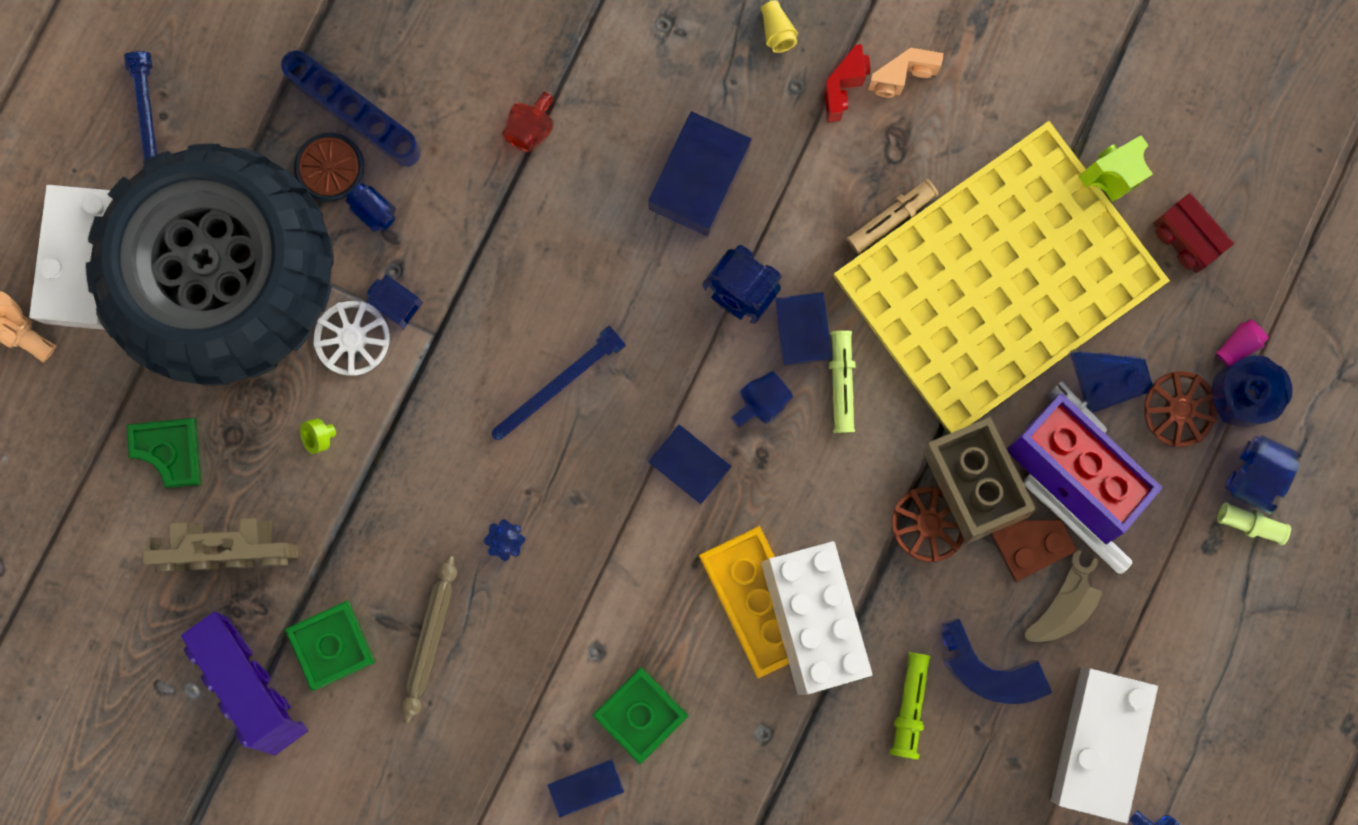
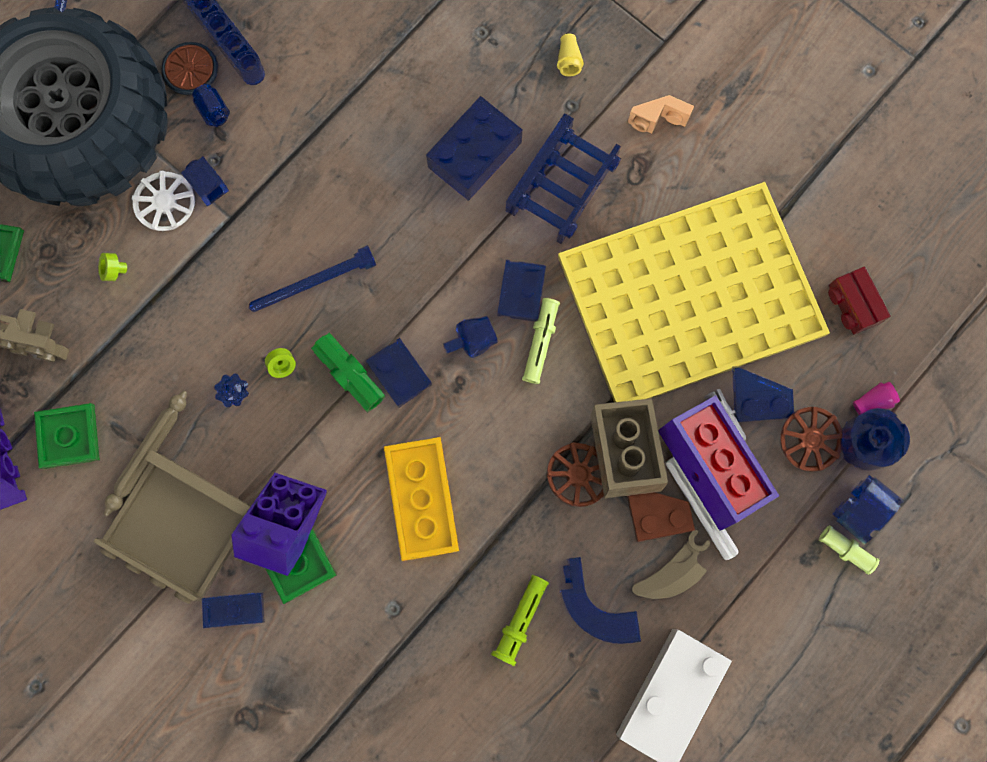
camera: 15 degrees right, 5 degrees down
(491, 714) = (174, 528): none -> dark tan panel
(529, 125) = (353, 77): clear red piece -> none
(550, 492) = (280, 363): none -> lime tile
(609, 677) = (278, 524): none -> dark purple slope
(632, 481) = (348, 372): none -> green piece
(743, 284) = (482, 240): clear blue brick -> none
(791, 159) = (551, 156): none -> clear blue fence
(816, 618) = (462, 523): white brick -> none
(848, 74) = (611, 105): red slope -> none
(903, 208) = (620, 222): tan pin -> none
(1119, 169) = (811, 233): lime brick -> none

